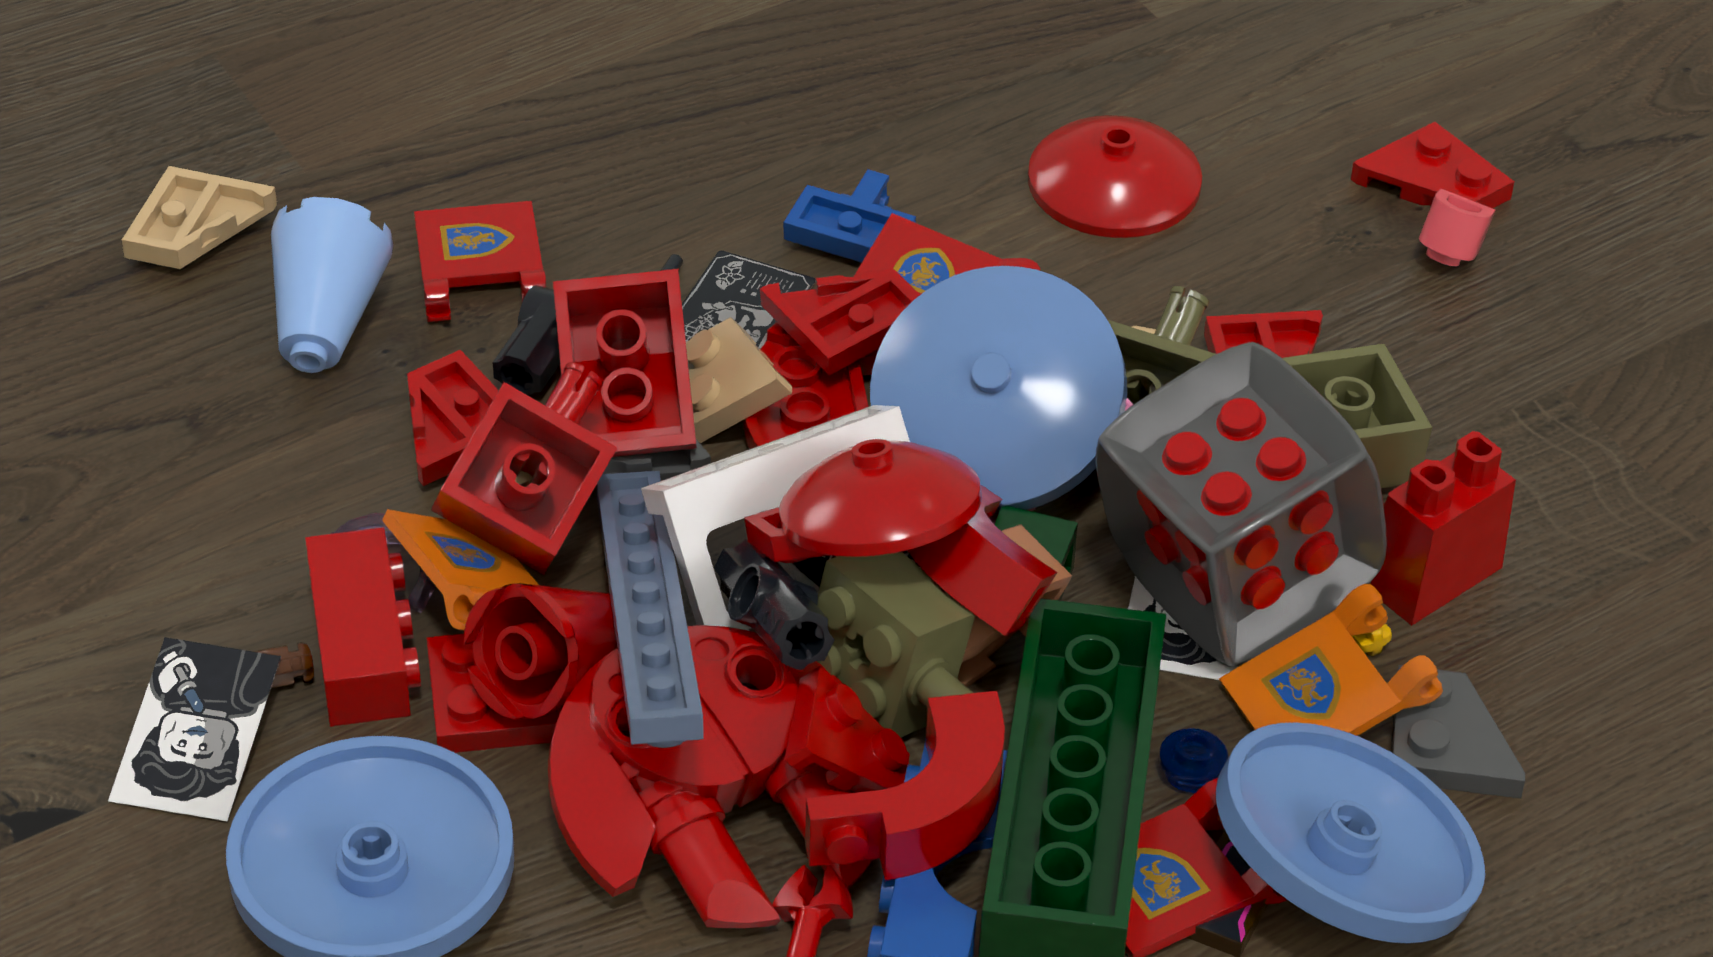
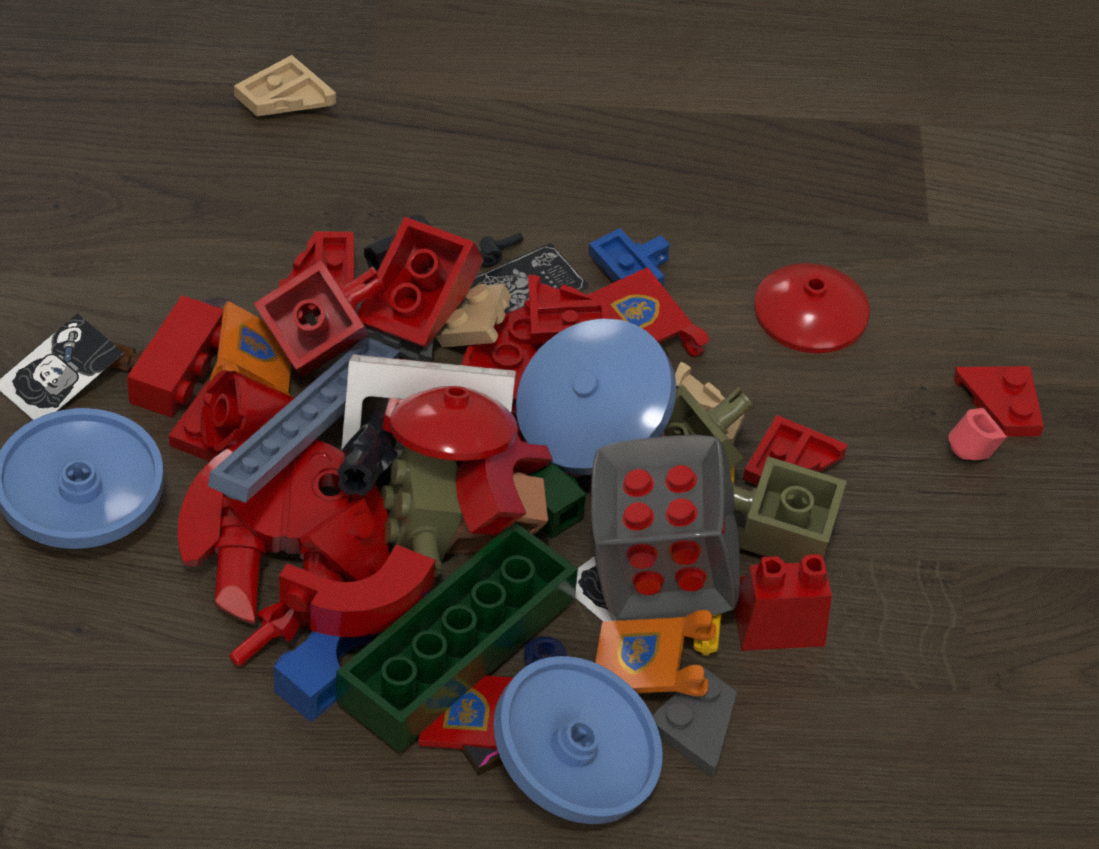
camera: 30 degrees right, 5 degrees up
(324, 277) = (312, 158): light blue cone -> none
(476, 249) = (417, 178): red flag -> none

